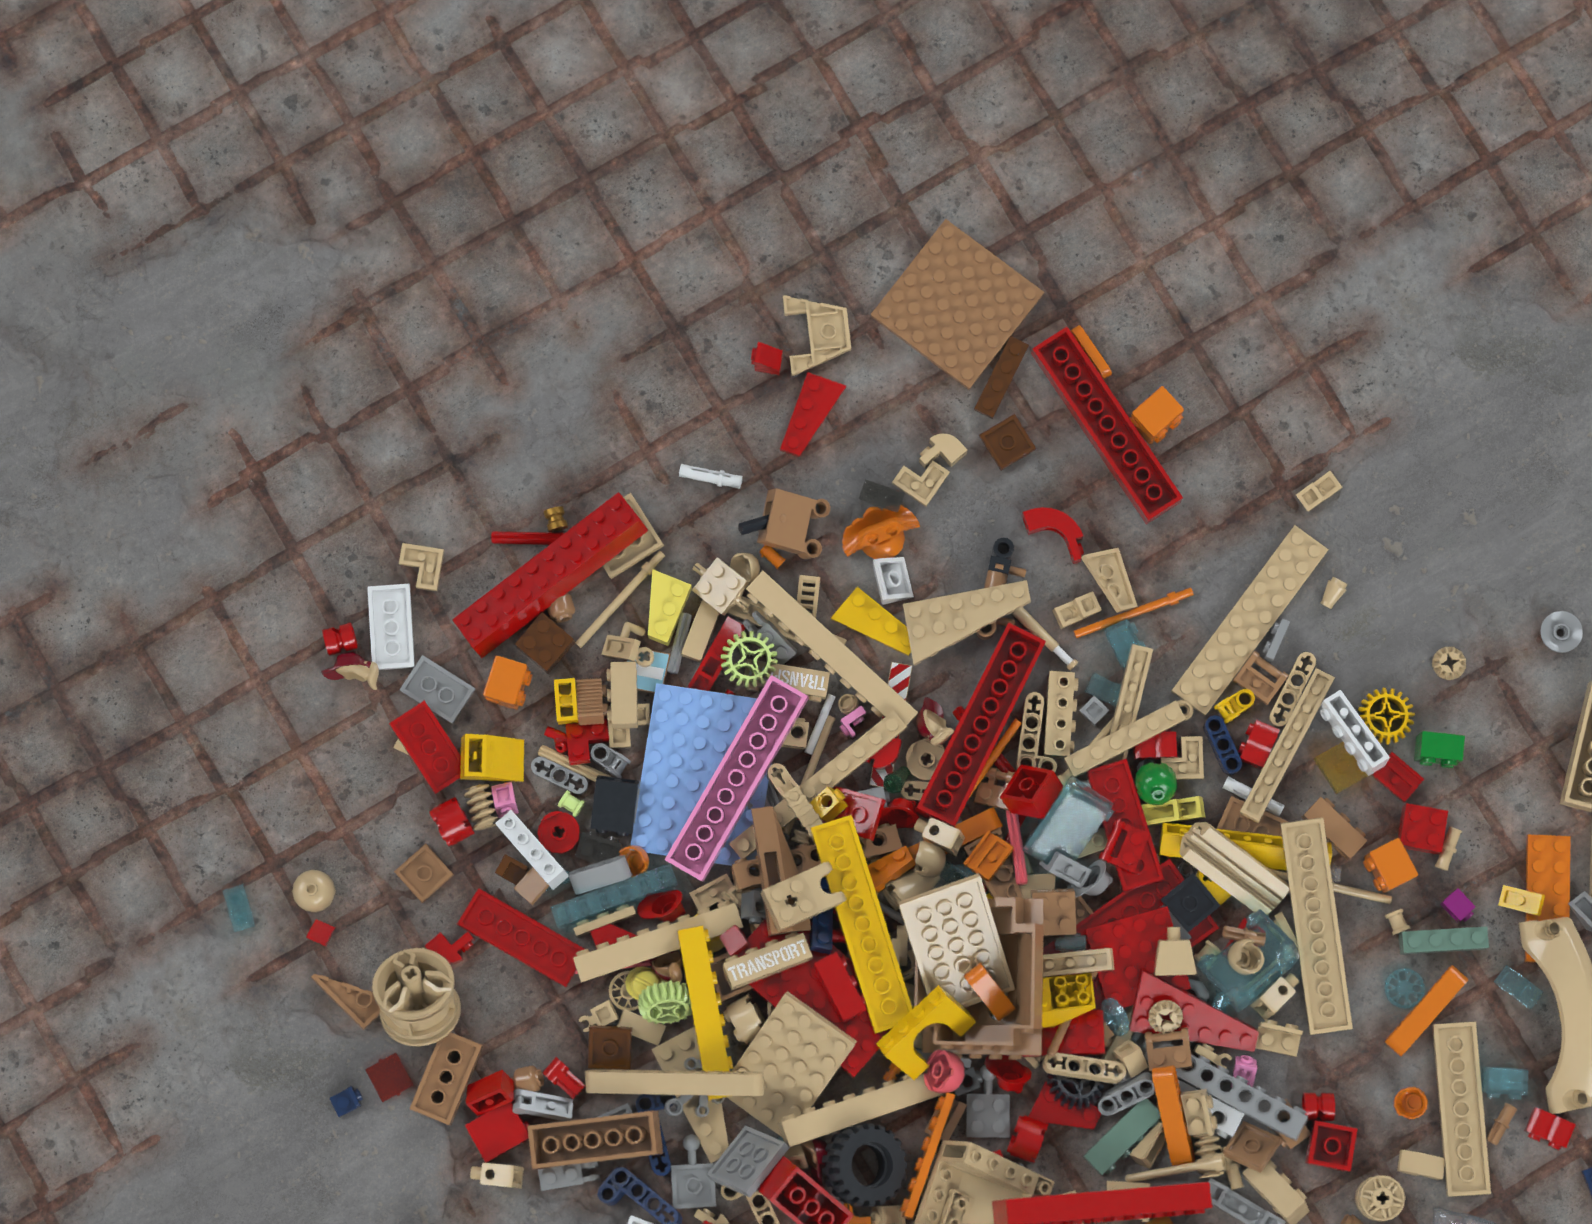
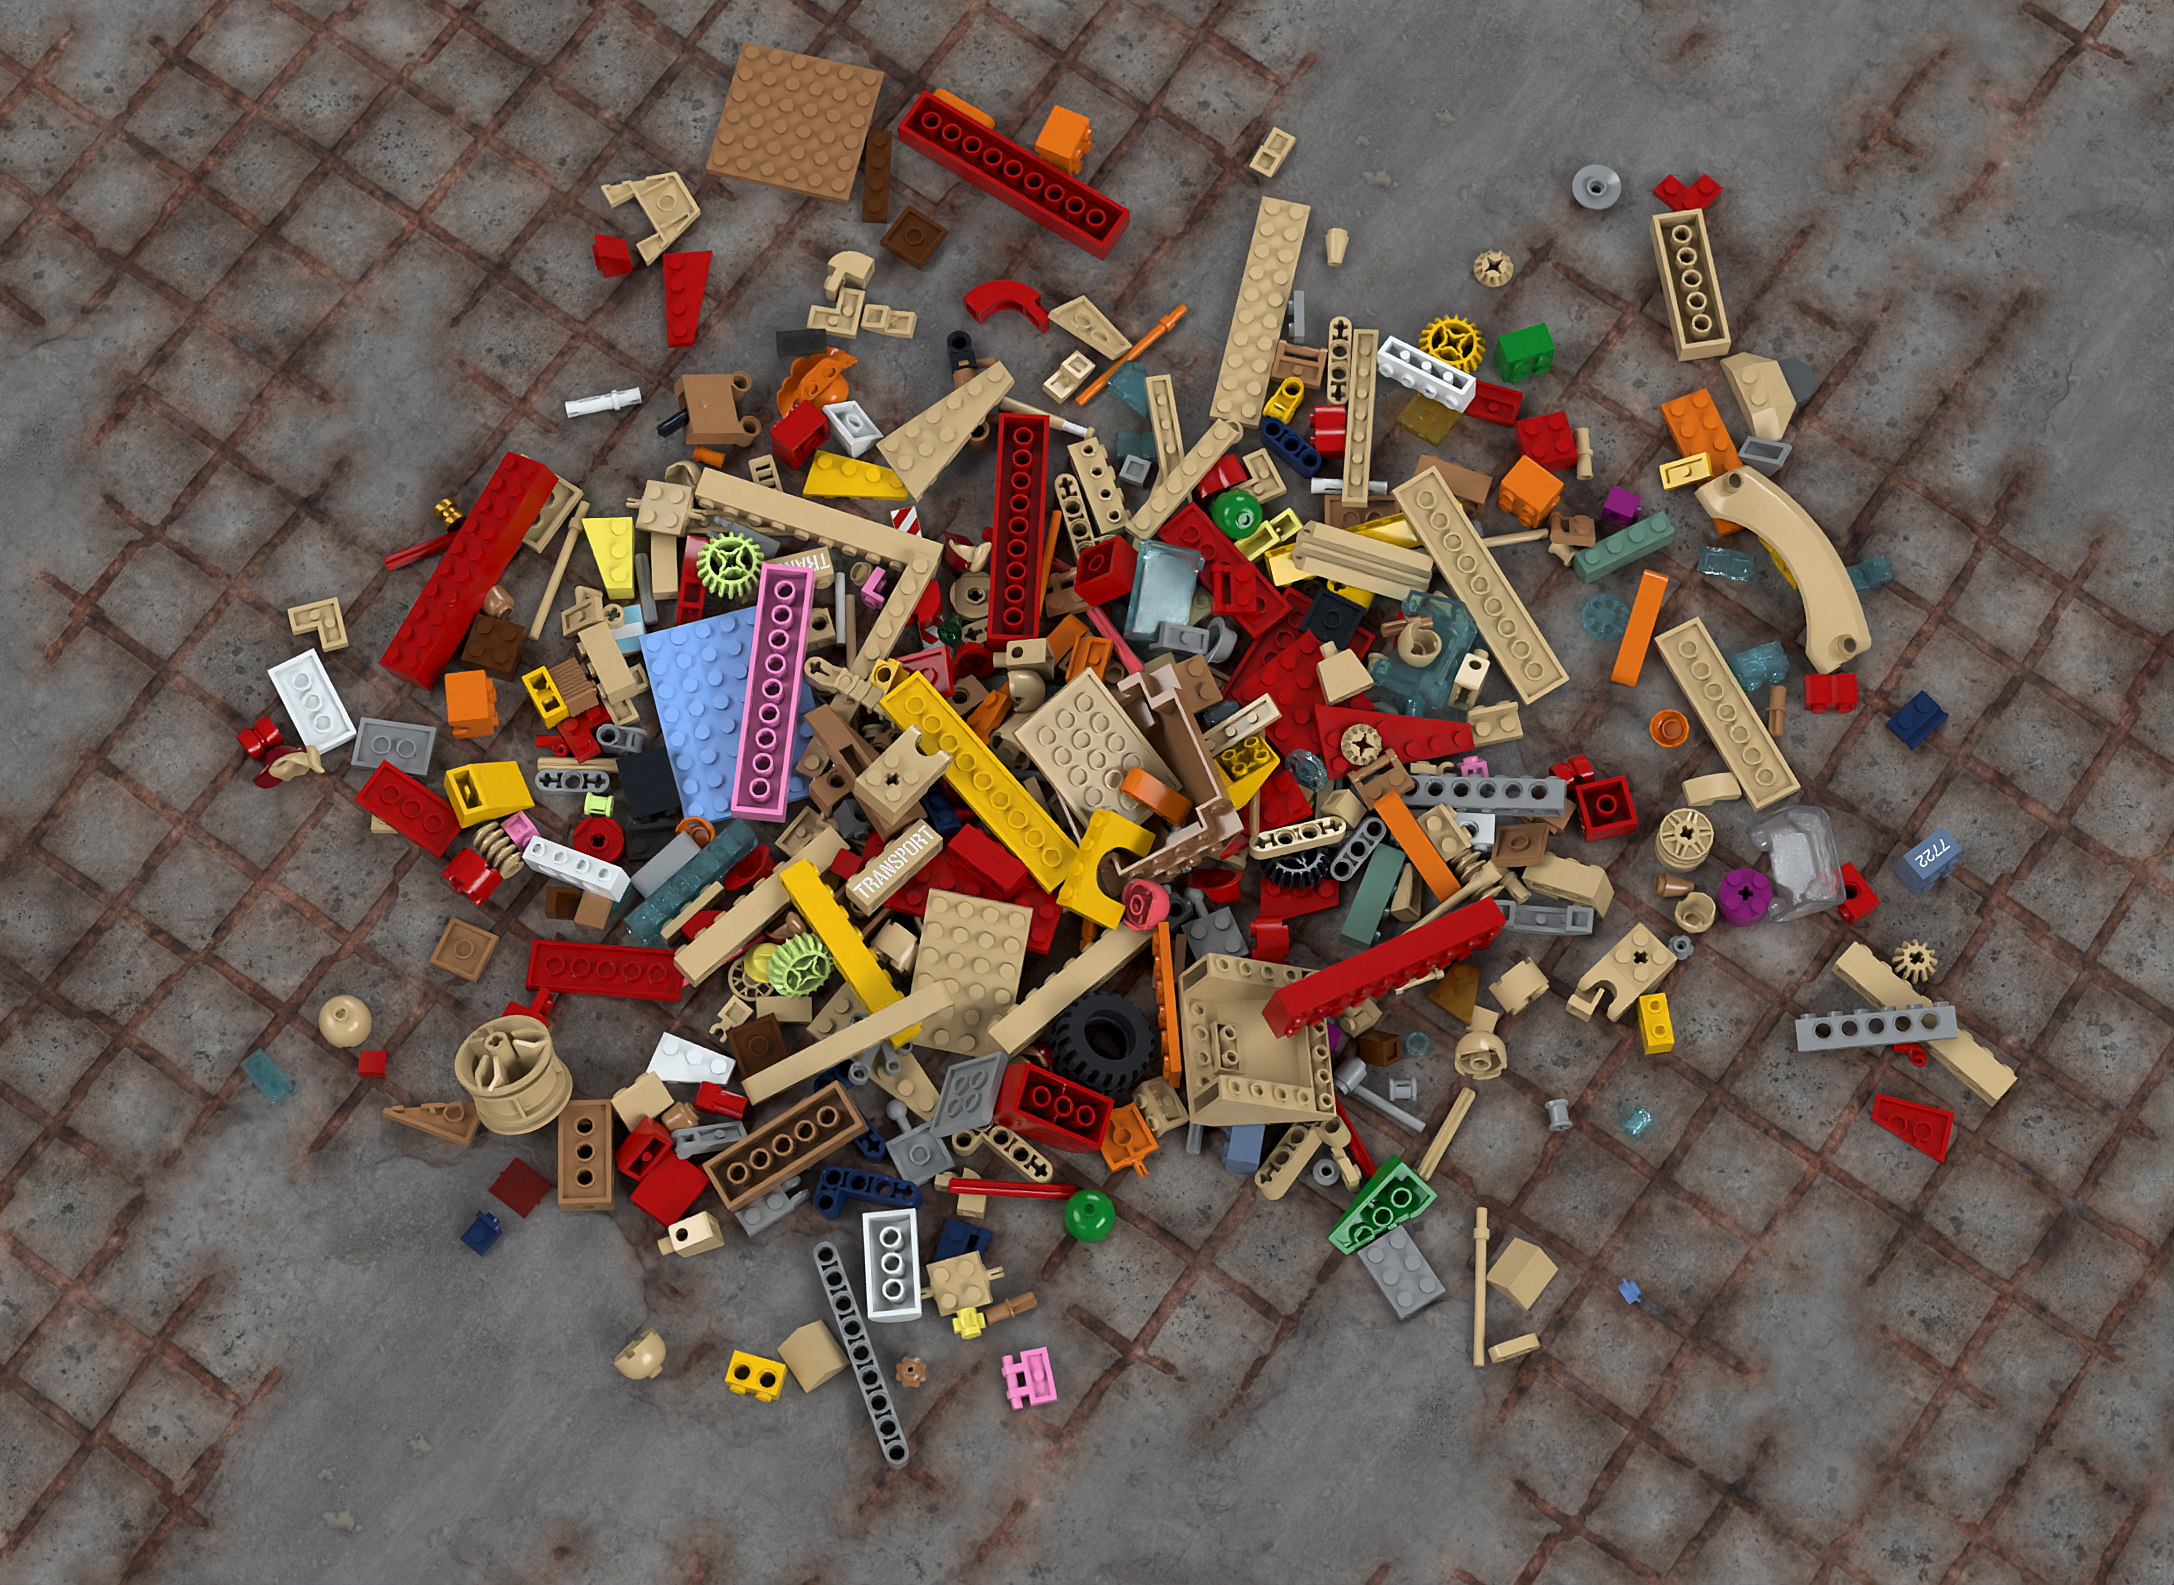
camera: 25 degrees left, 10 degrees down
(505, 1056) = (642, 1099): none -> tan slope
(552, 1036) = (689, 1063): none -> white wing
(847, 571) = (799, 434): none -> red brick
(958, 503) = (888, 322): none -> tan slope
(1416, 911) = (1580, 530): none -> medium nougat plate

